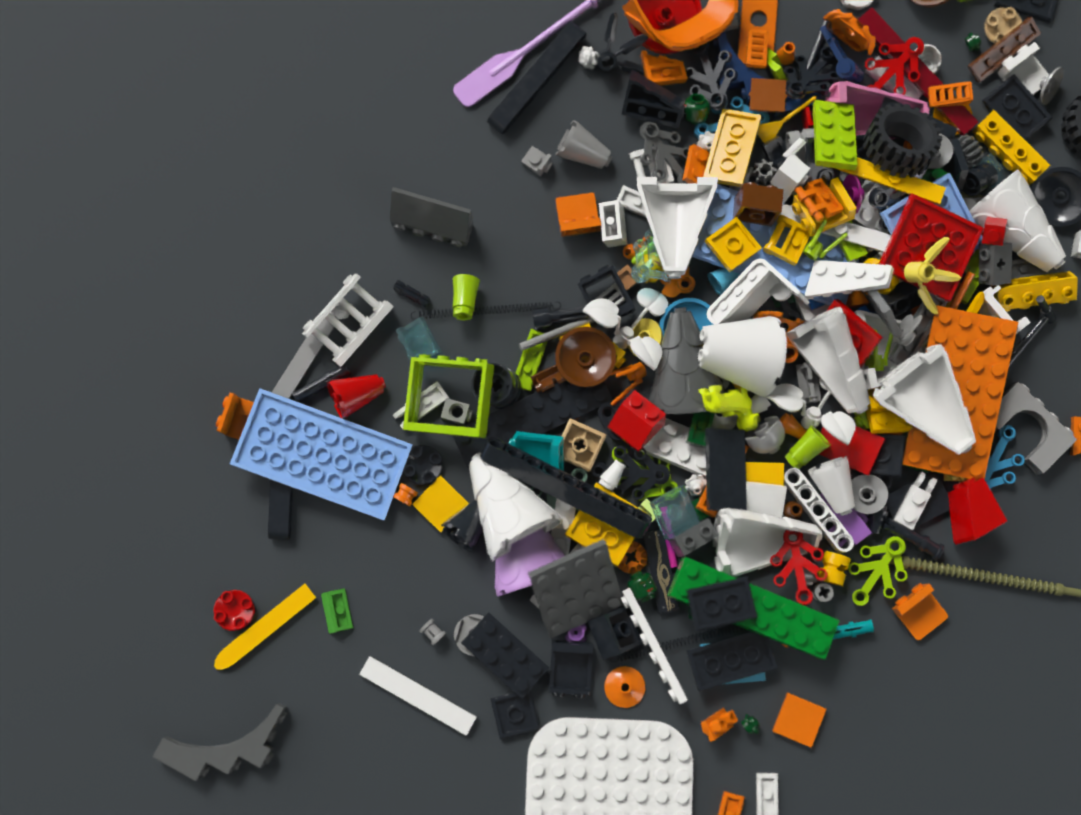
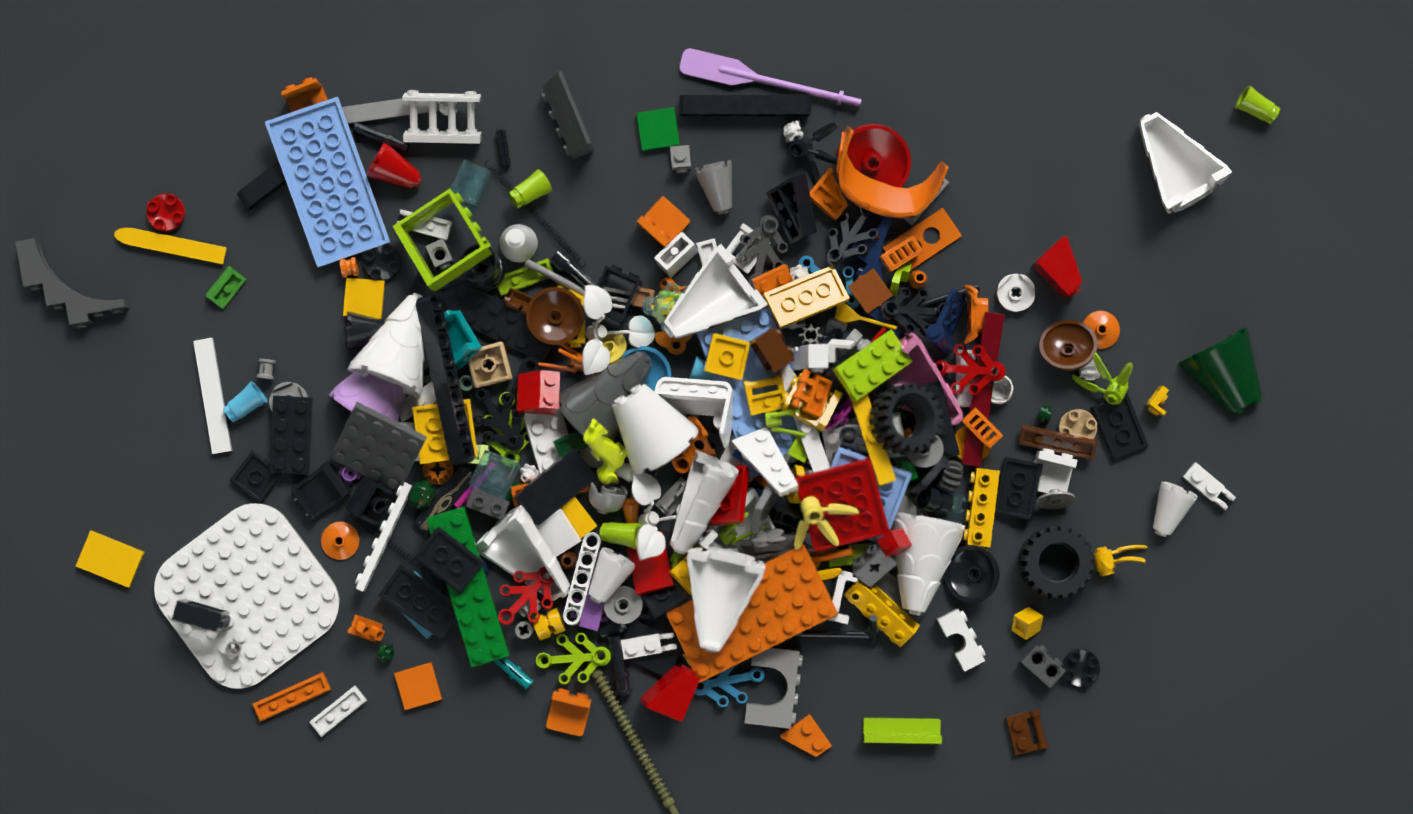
camera: 50 degrees right, 5 degrees up
(446, 672) = (245, 402): none -> medium azure plant
(498, 160) = (658, 129): none -> green tile
(498, 343) = (518, 243): none -> white cone
(612, 475) = (484, 406): white cone -> none
(696, 109) = (817, 245): dark green head -> none

